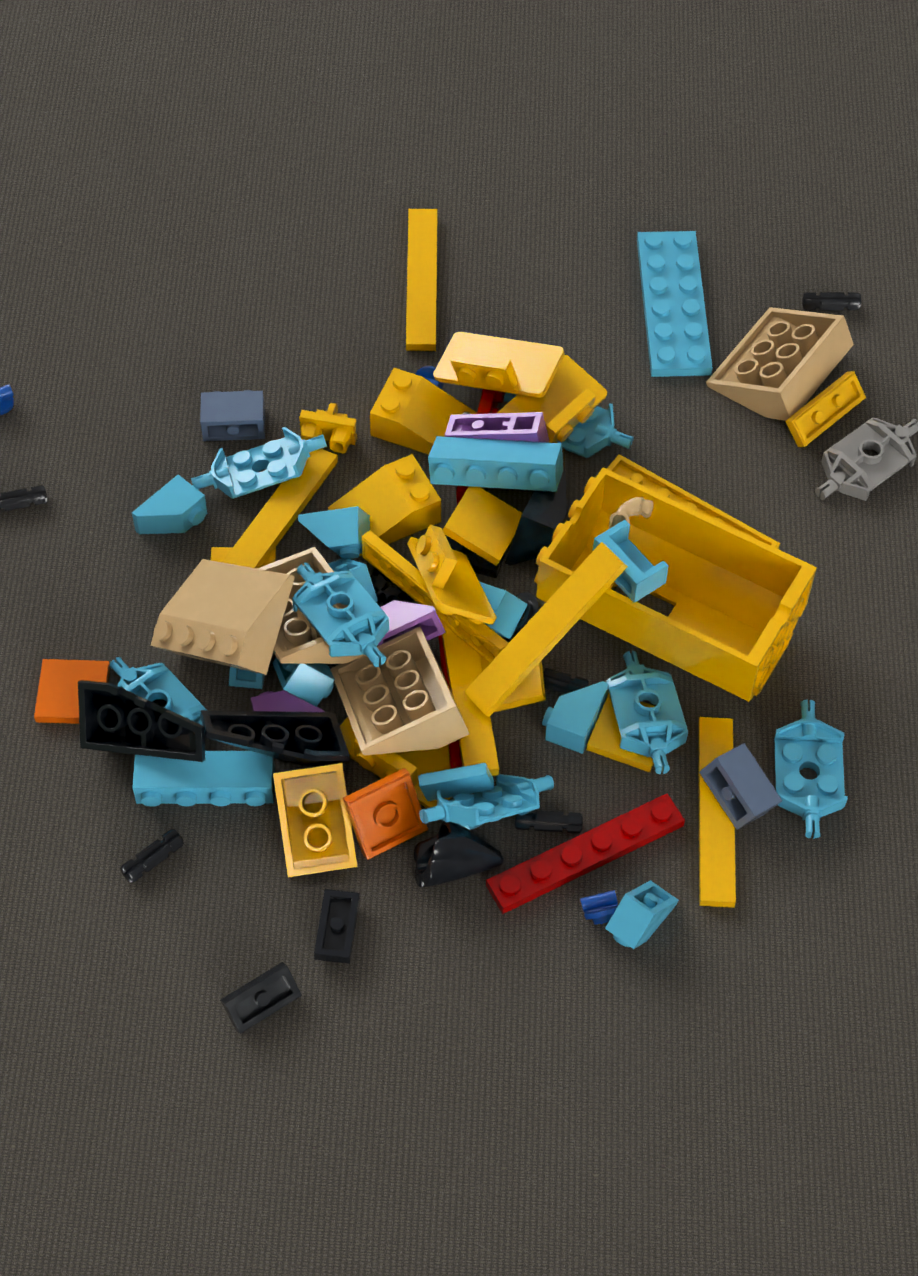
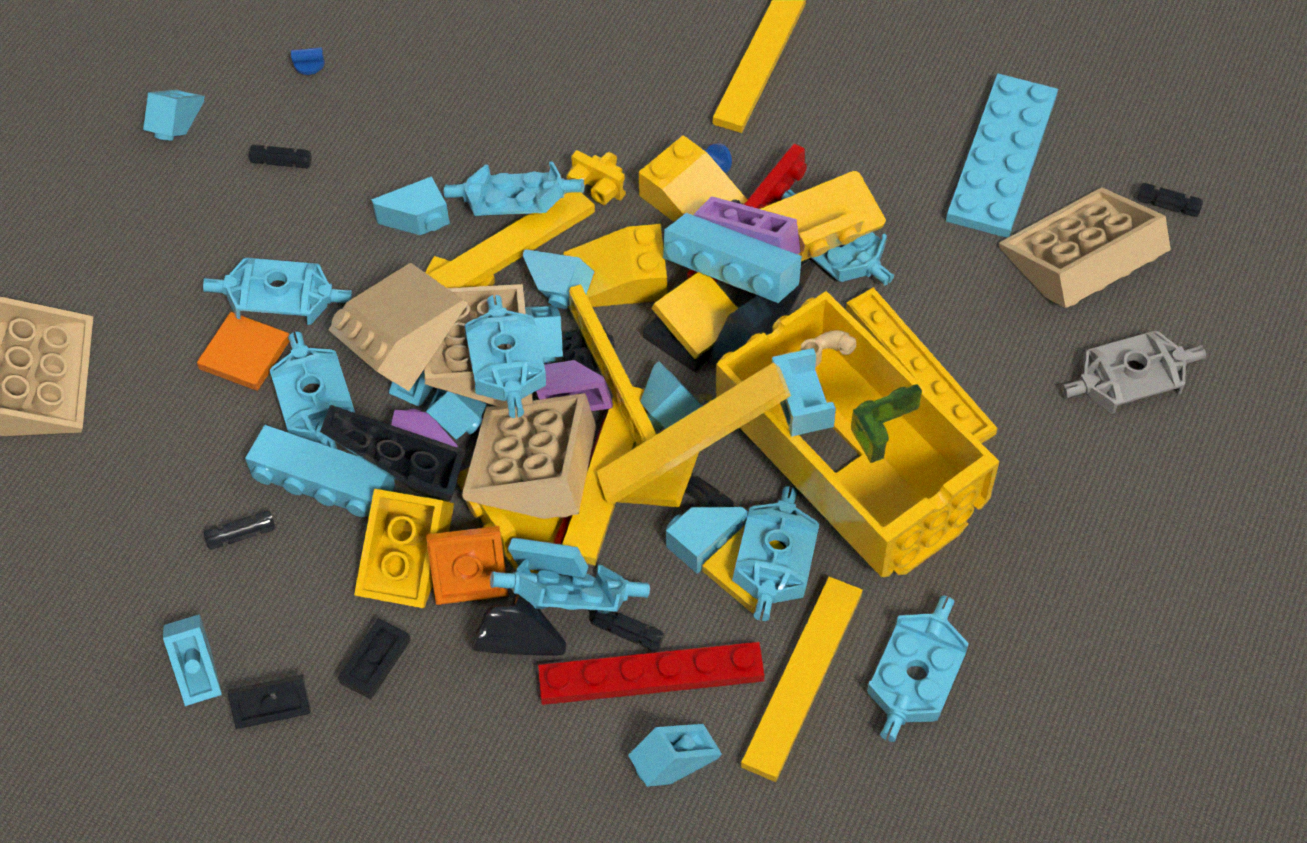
camera: 25 degrees right, 0 degrees up
(54, 632) = (303, 294): none -> medium azure plate
(129, 724) = (266, 399): black wedge -> none
(169, 985) = (191, 659): none -> medium azure slope
(232, 415) = (513, 137): sand blue brick -> none
(450, 577) = (632, 356): yellow bracket -> none
(499, 364) = (786, 162): yellow bracket -> none
(599, 907) = (634, 730): blue plate -> none
(697, 573) = (870, 415): none -> clear green bracket
(740, 786) = (833, 660): sand blue brick -> none
(825, 409) = (1109, 307): yellow tile -> none

